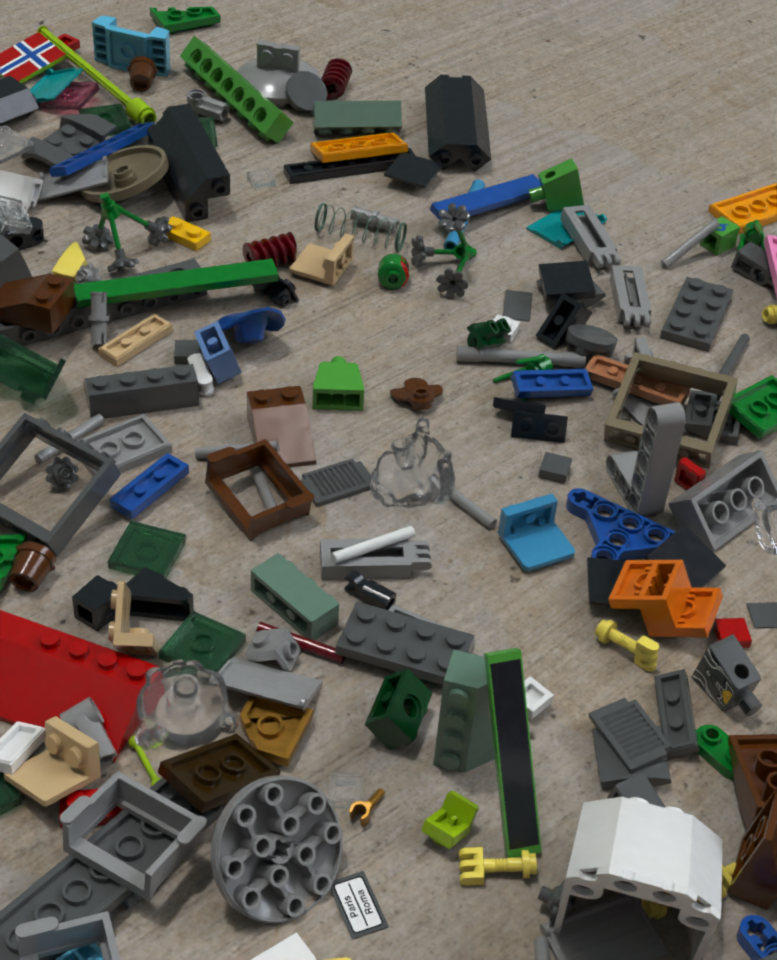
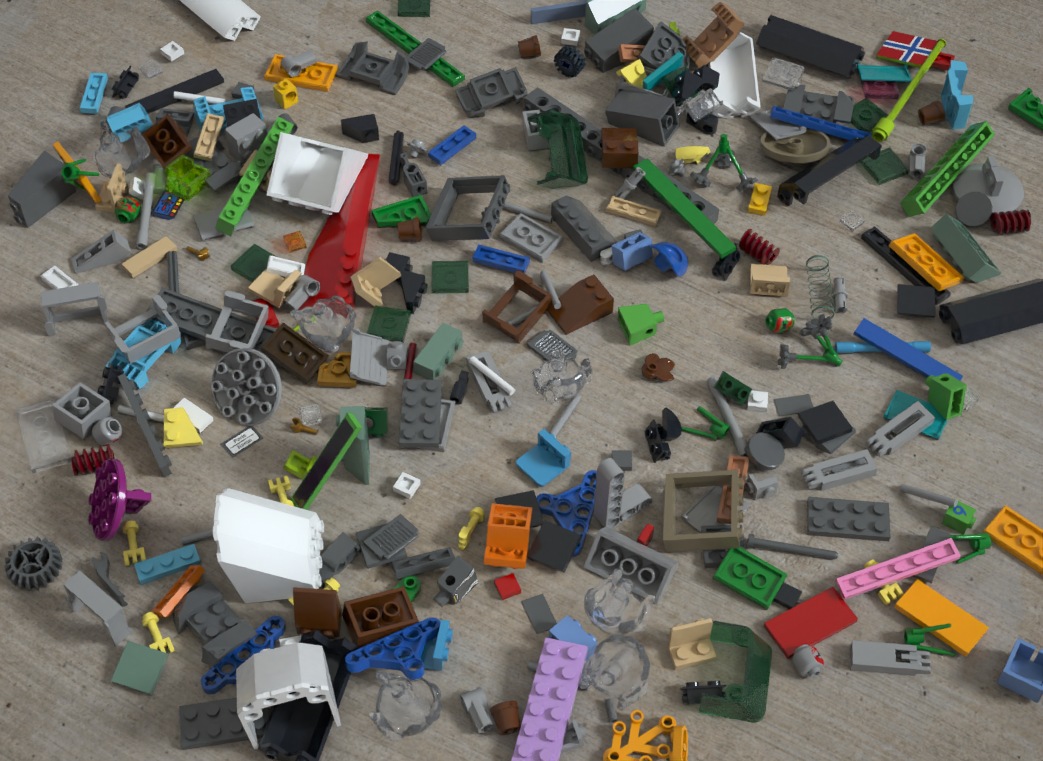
camera: 75 degrees right, 10 degrees up
(551, 383) = (703, 438): blue plate -> none

